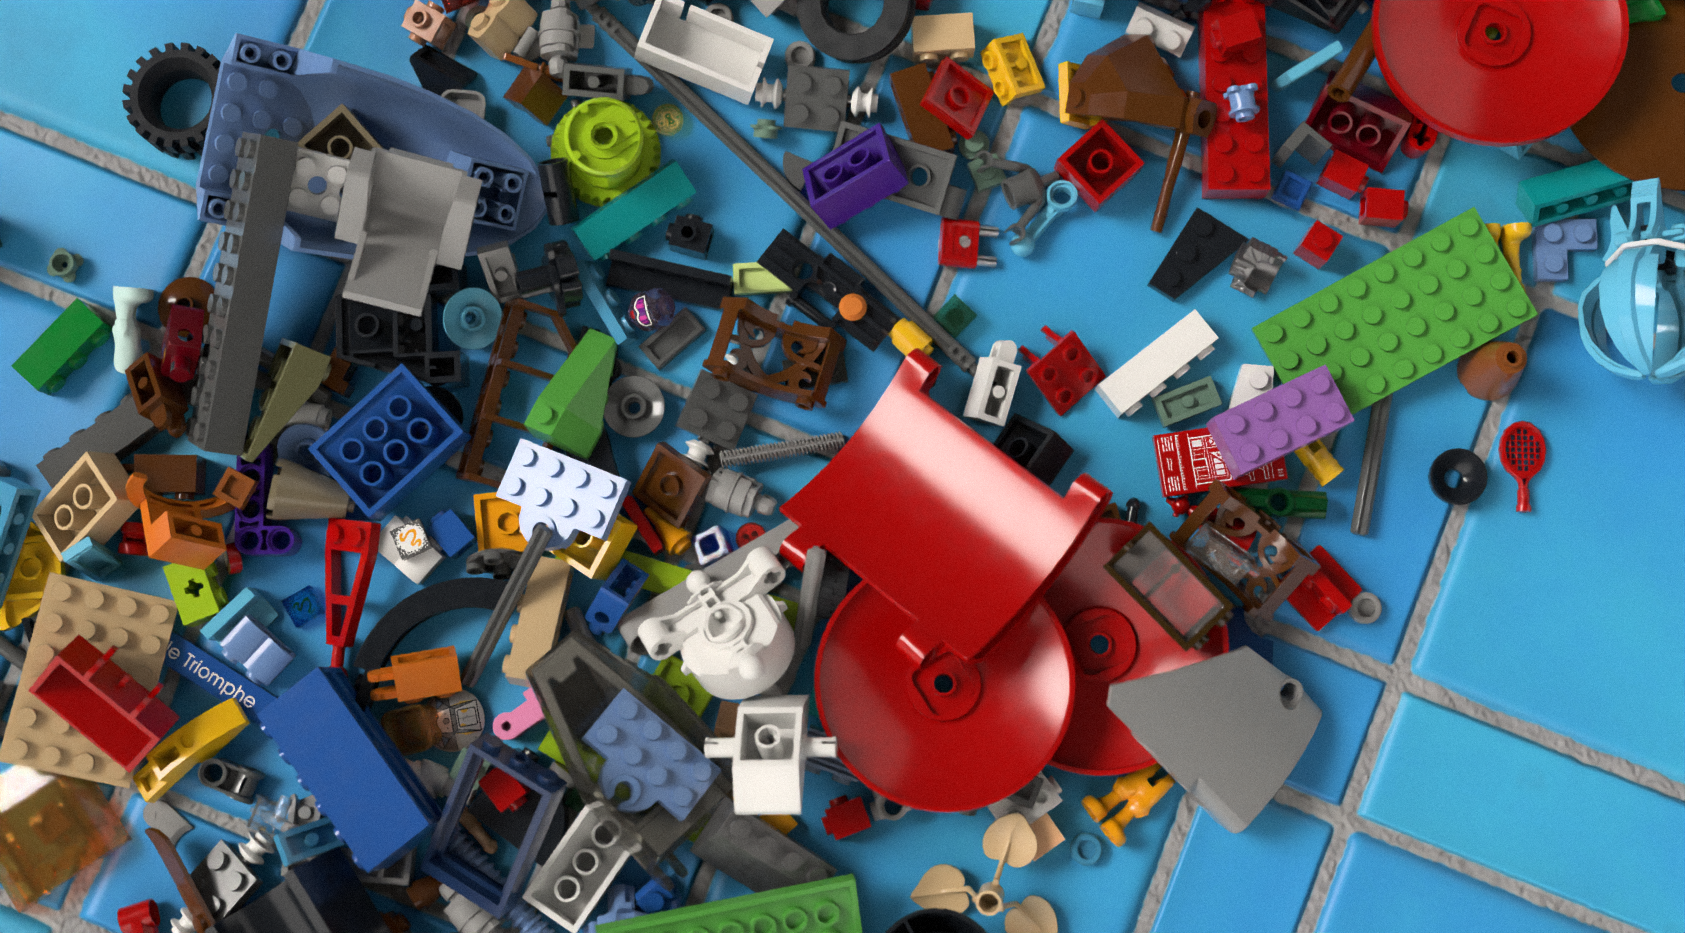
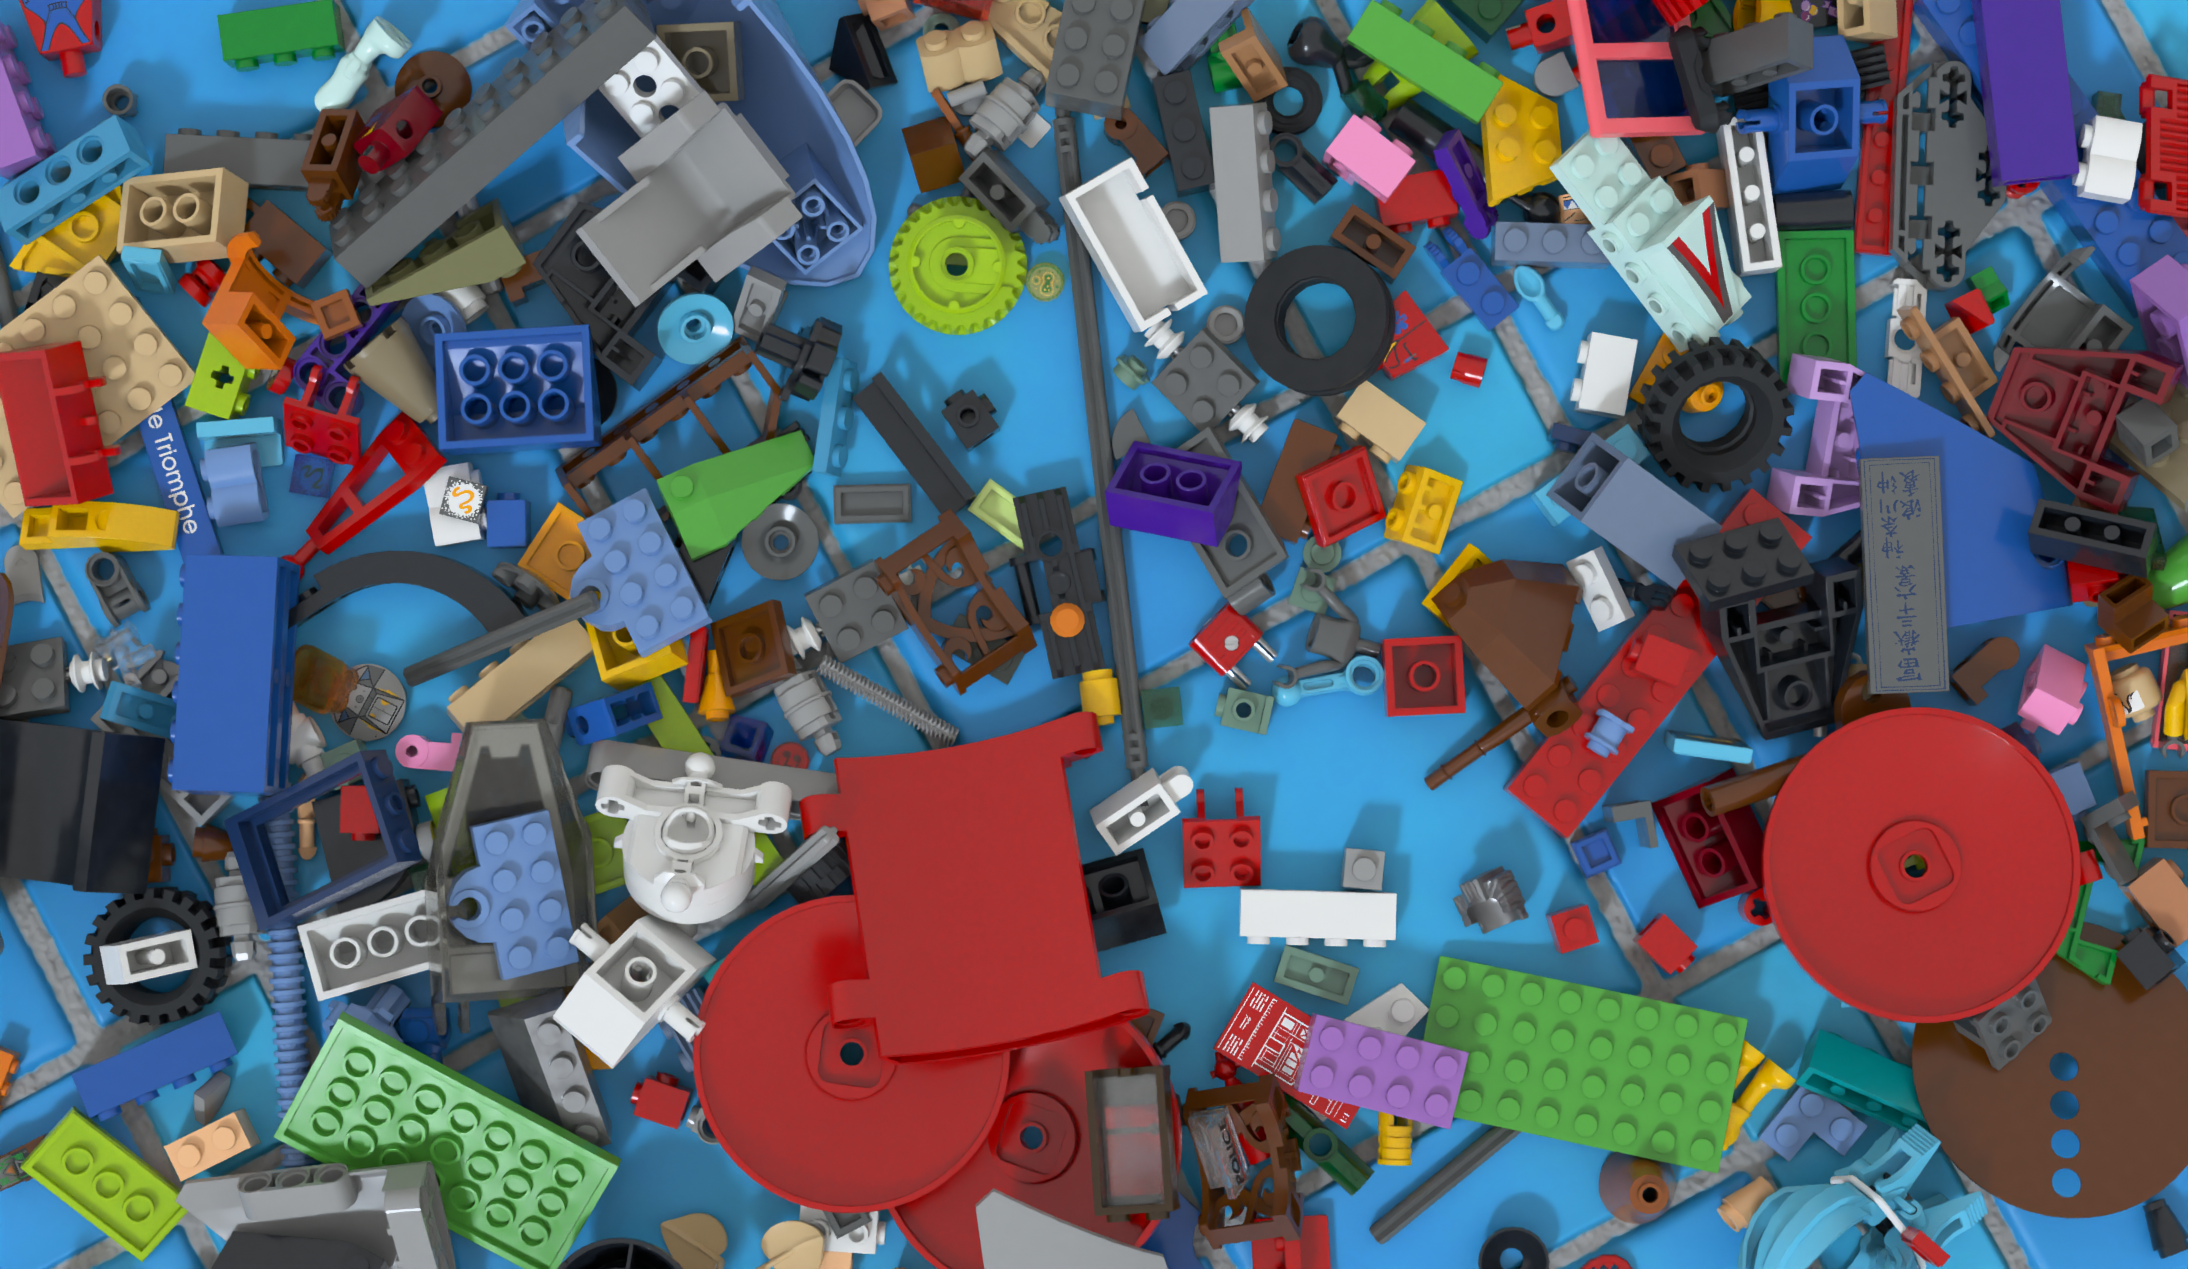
camera: 40 degrees right, 5 degrees up
(285, 570) = (320, 431): none -> red plate
(419, 676) = (367, 636): orange hinge -> none
(558, 191) = (877, 271): black pin -> none
(633, 210) = (935, 349): teal brick -> none
(651, 309) = (873, 462): clear purple head -> none
(1002, 288) = (1260, 713): none -> sand green brick
(1160, 312) = (1362, 868): none -> light grey brick
(1194, 254) = (1447, 837): black wing -> none
(1343, 175) = (1657, 881): red brick -> none
(1564, 327) = (1743, 1203): none -> light nougat cone
(1631, 85) = (2009, 1026): none -> dark grey bracket

